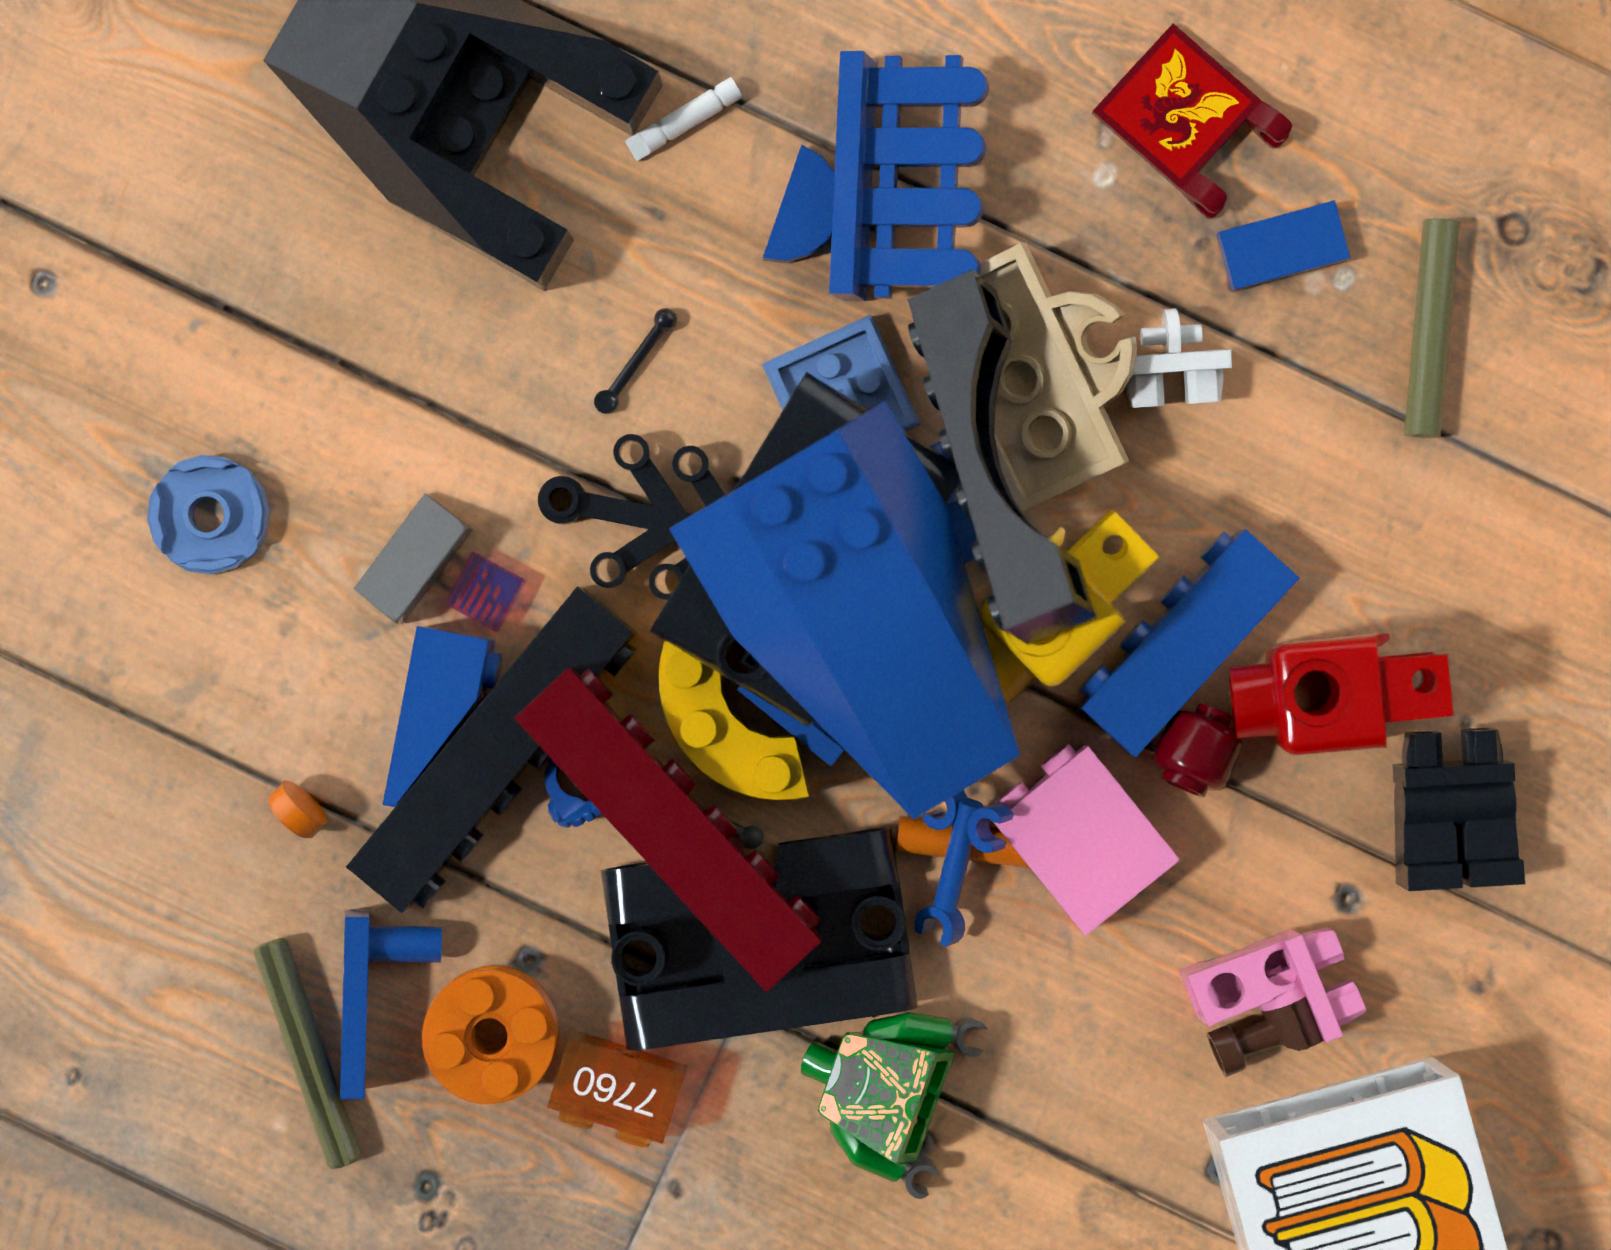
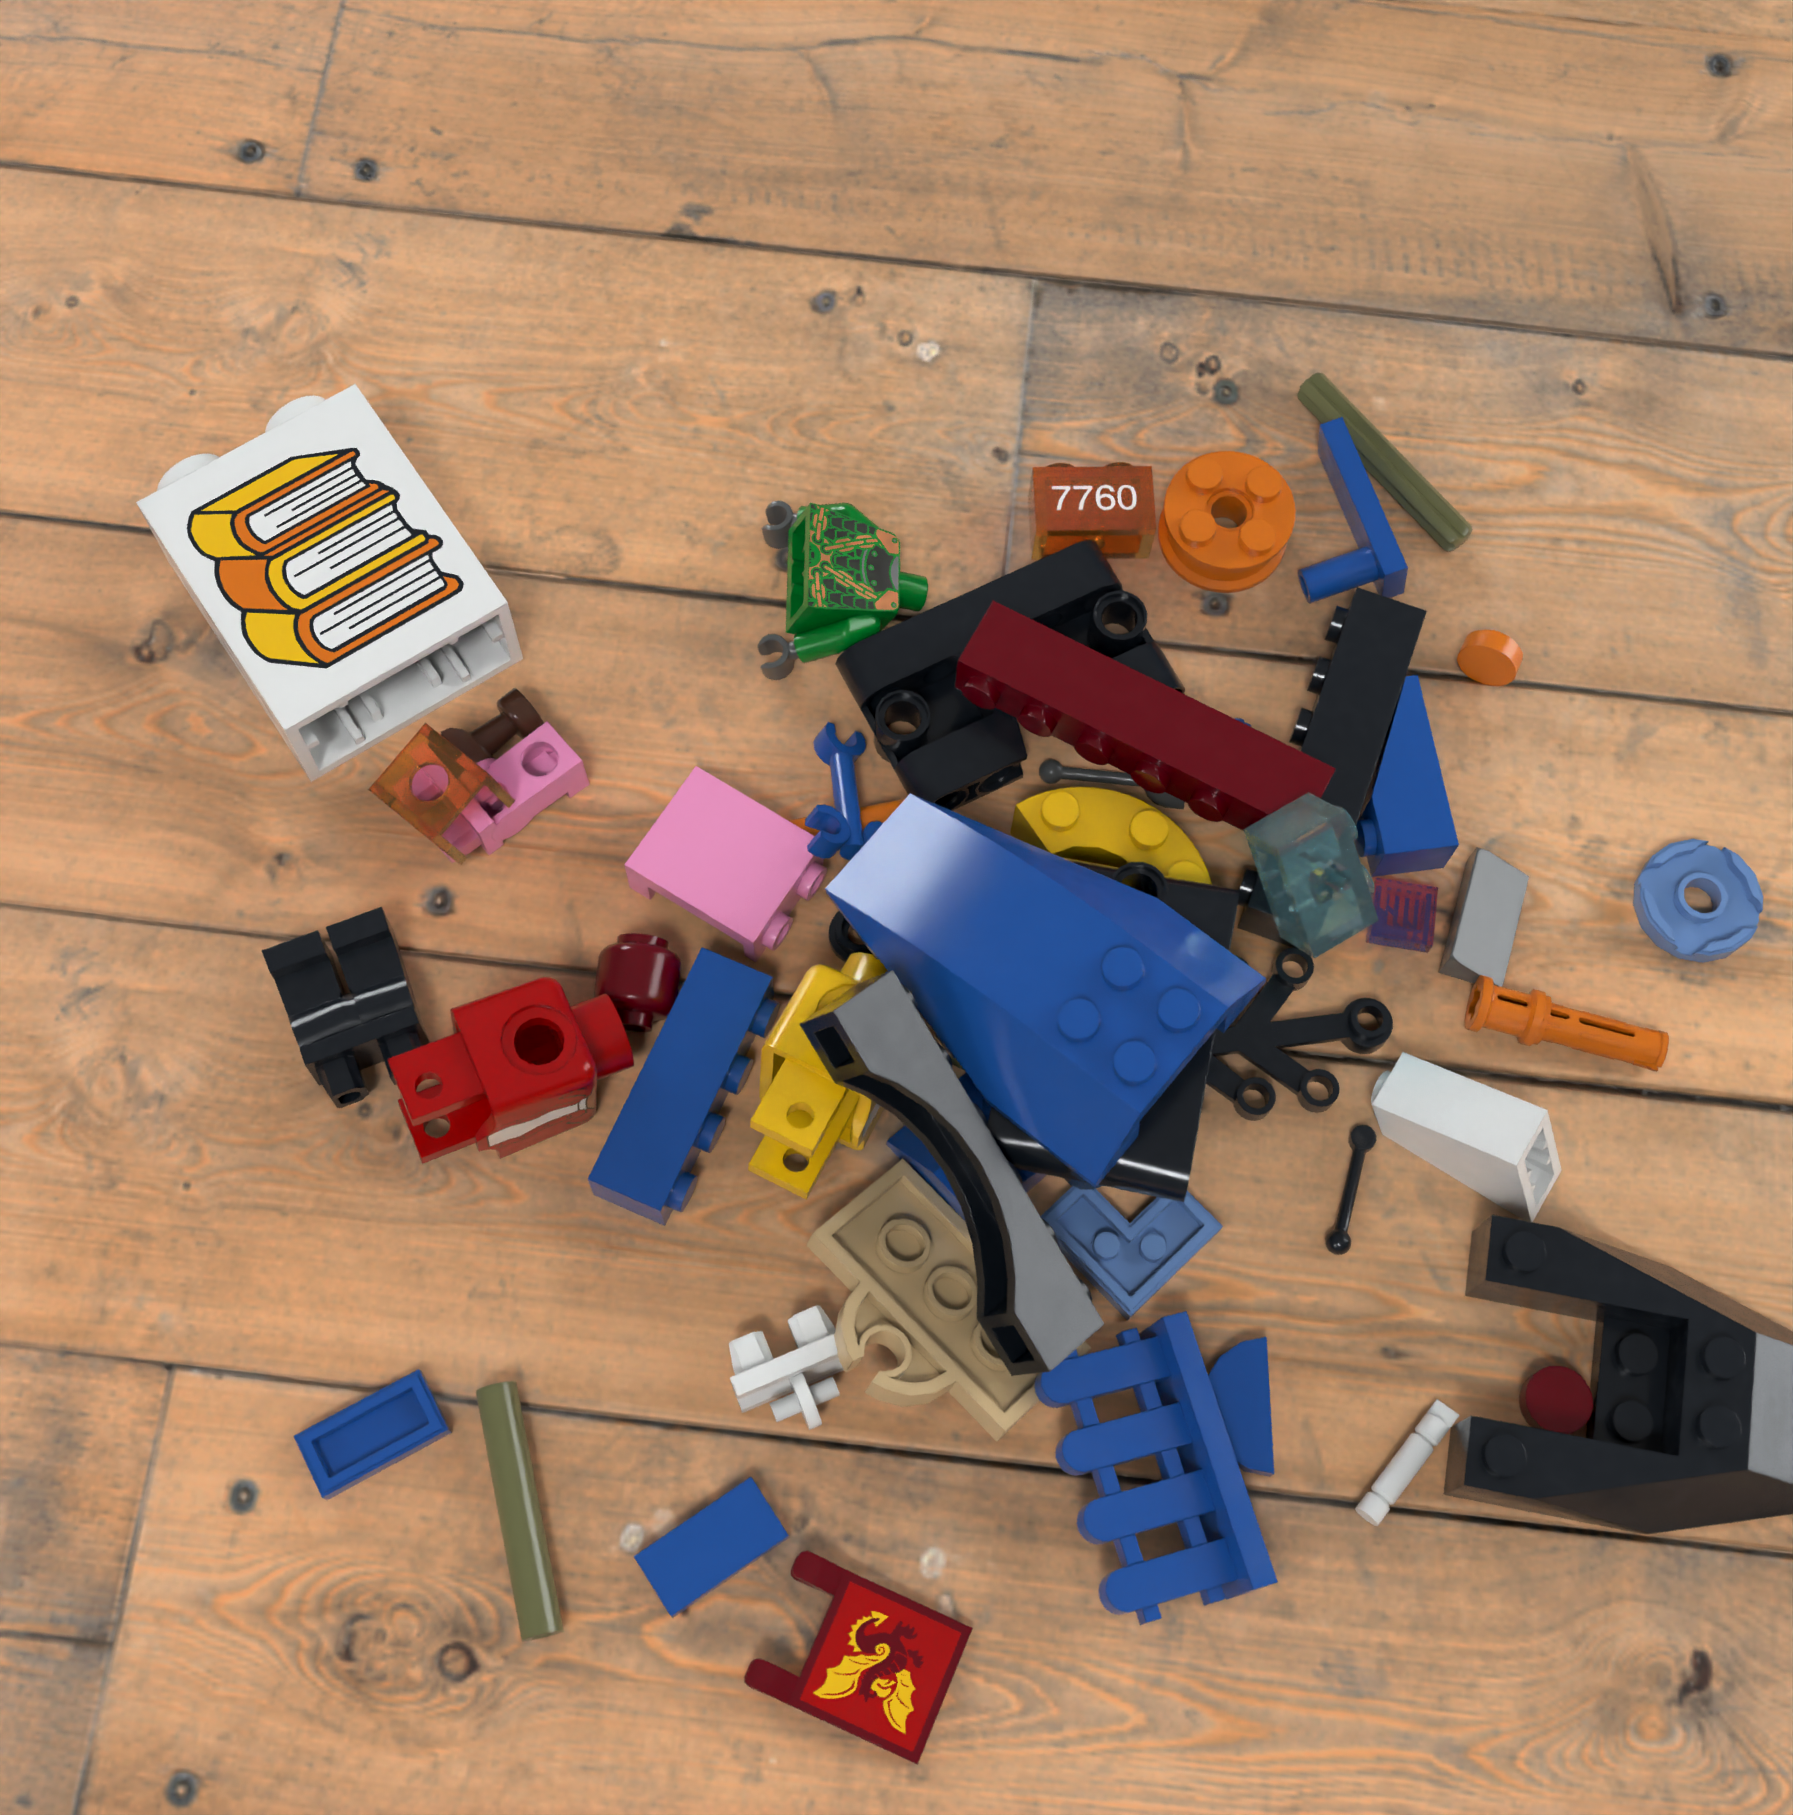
camera: 155 degrees right, 20 degrees down
(410, 452) = (1536, 1018): none -> orange pin
(520, 368) = (1470, 1133): none -> white slope
(538, 124) = (1556, 1400): none -> dark red tile
(576, 624) = (1312, 874): none -> clear light blue brick
(1307, 976) = (435, 816): none -> clear orange piece
(1533, 433) = (372, 1434): none -> blue tile

